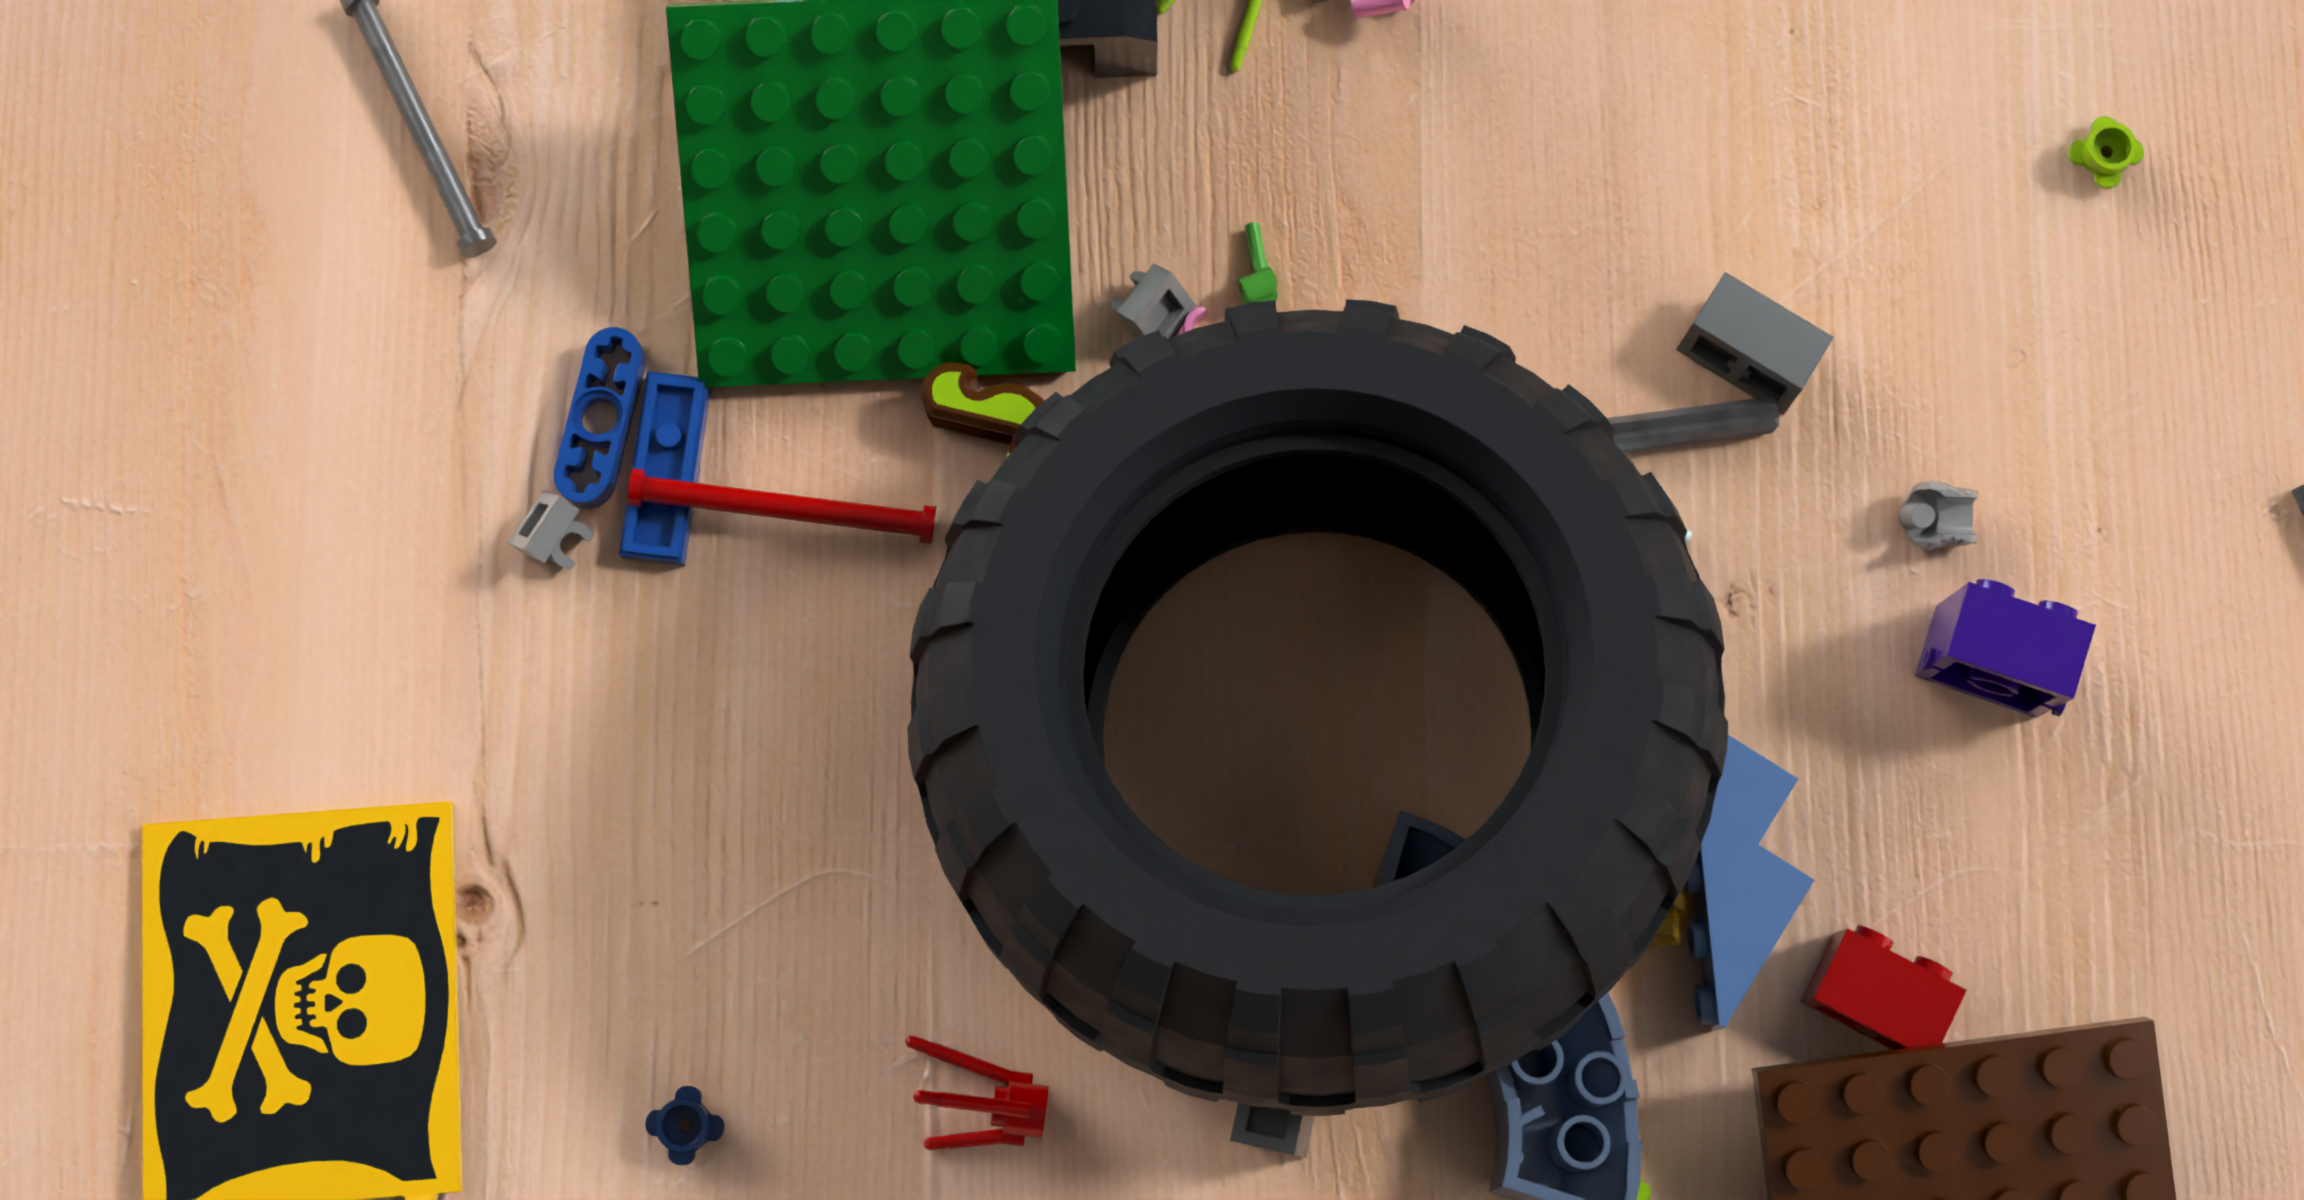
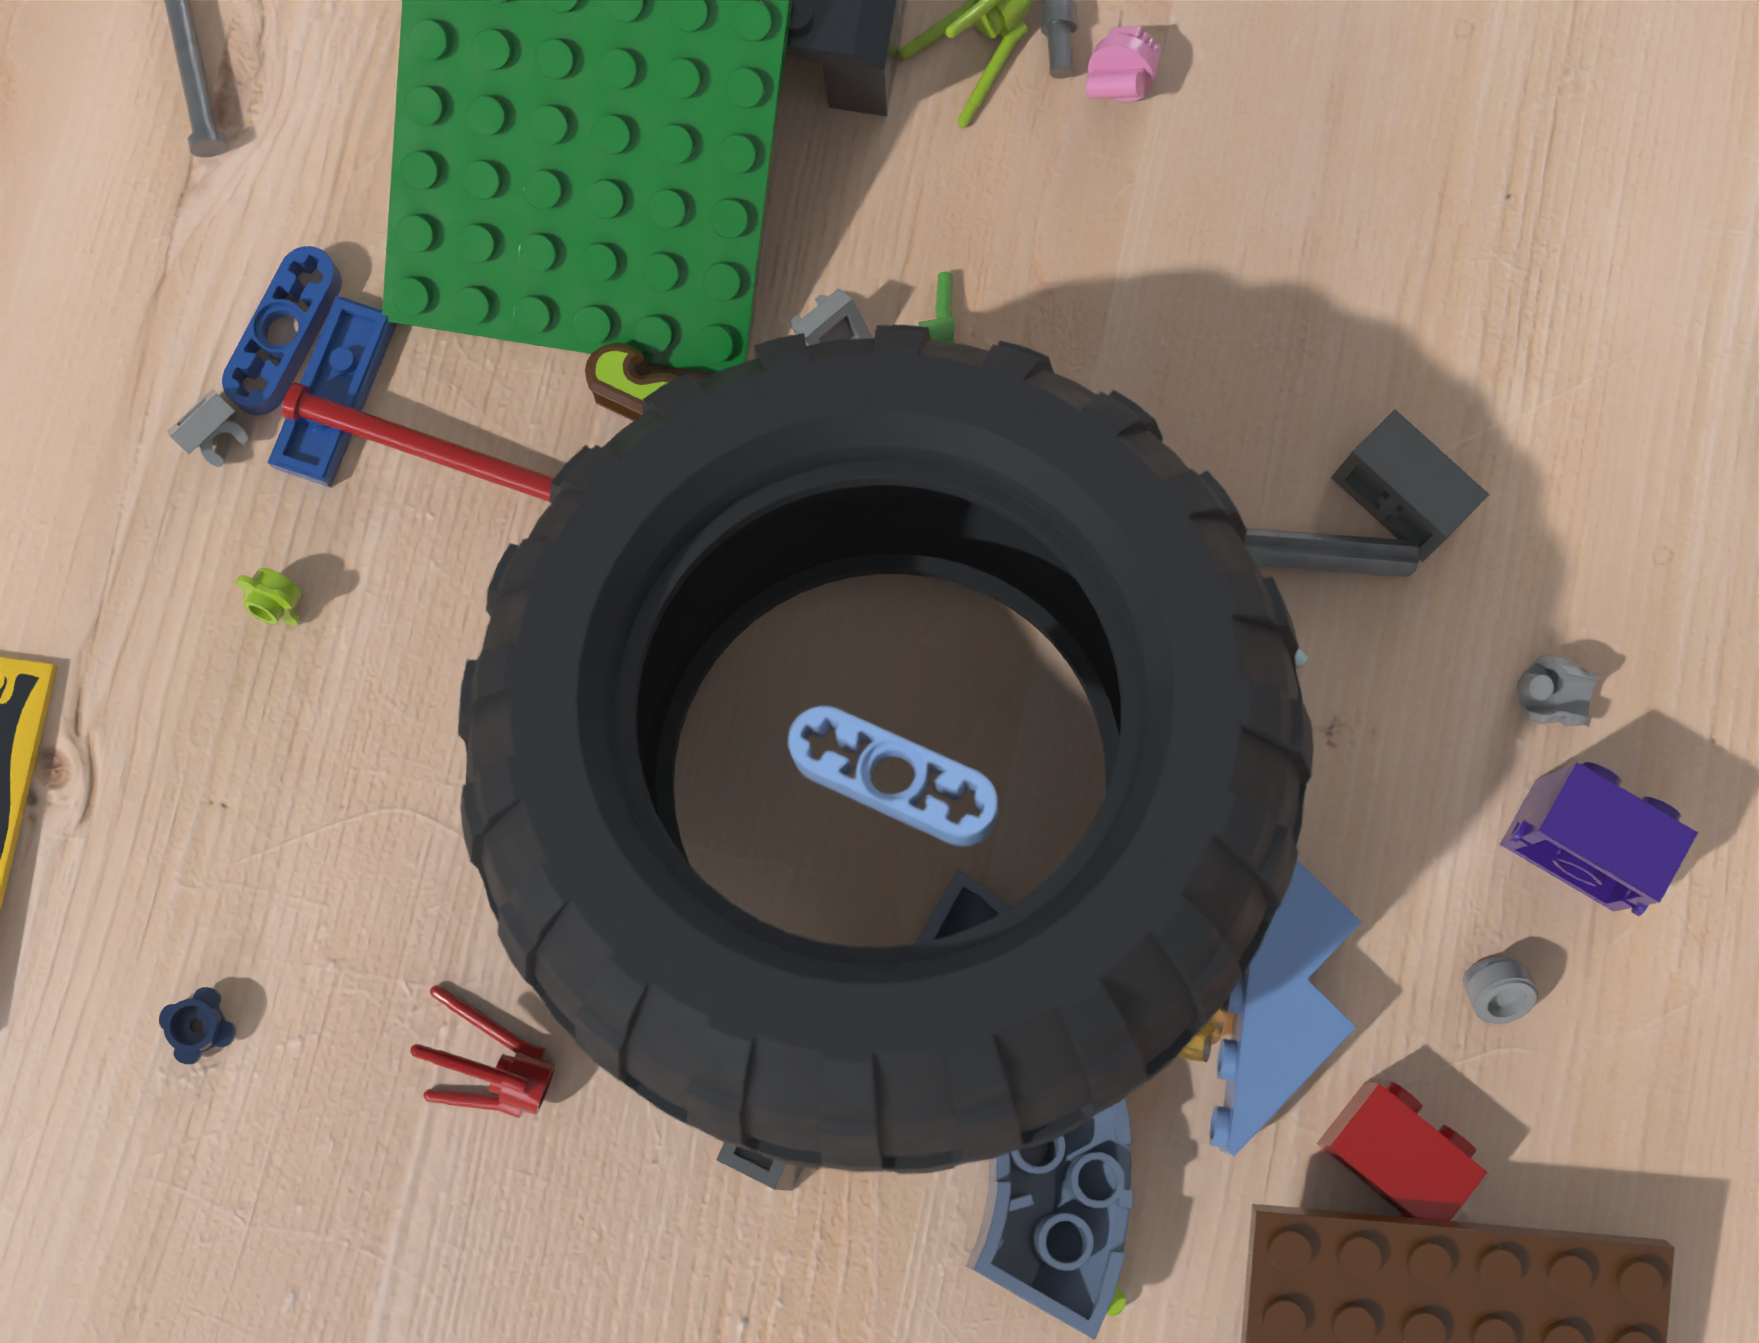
camera: 15 degrees right, 0 degrees up
(656, 688) = (270, 596): none -> lime plate
(1289, 733) = (834, 769): none -> light blue beam
(1943, 816) = (1500, 990): none -> light grey tile

